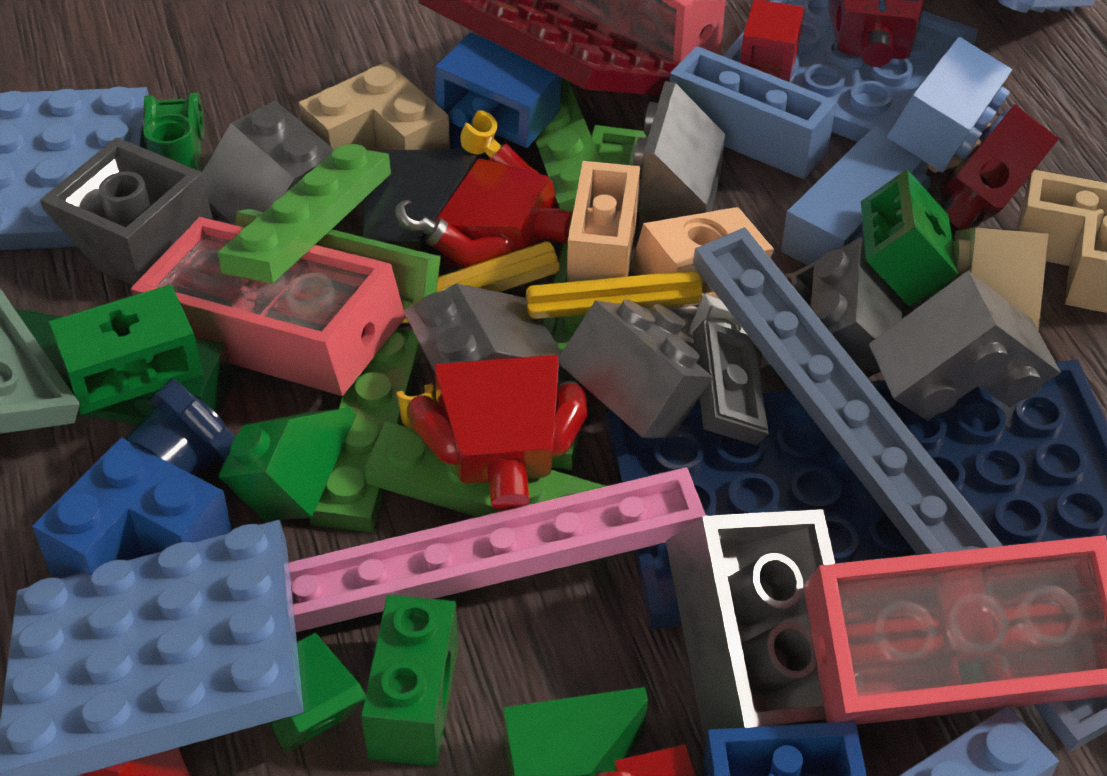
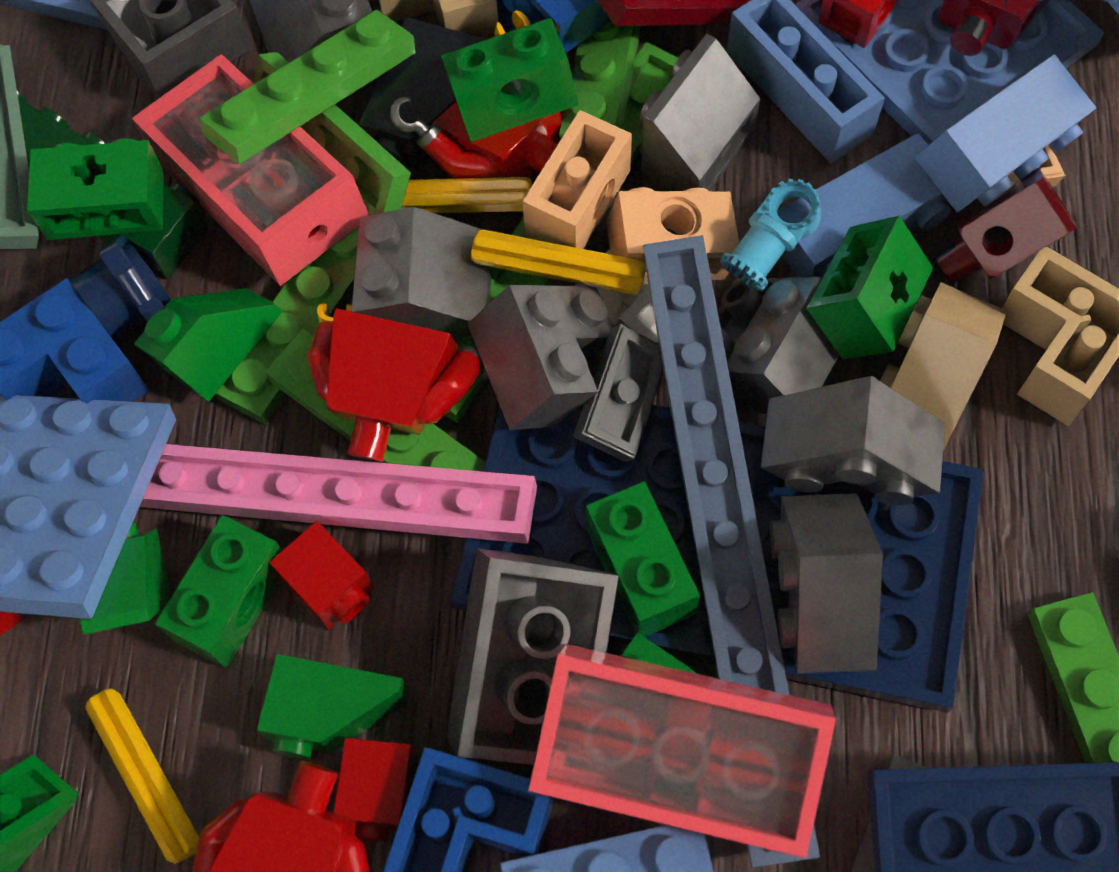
camera: 25 degrees right, 20 degrees up
(502, 159) = (511, 79): none -> green brick
(508, 635) = (324, 576): none -> red brick
(799, 222) = (771, 235): none -> medium azure connector
(809, 475) = (640, 550): none -> green brick
(1019, 464) = (832, 580): none -> flat silver brick

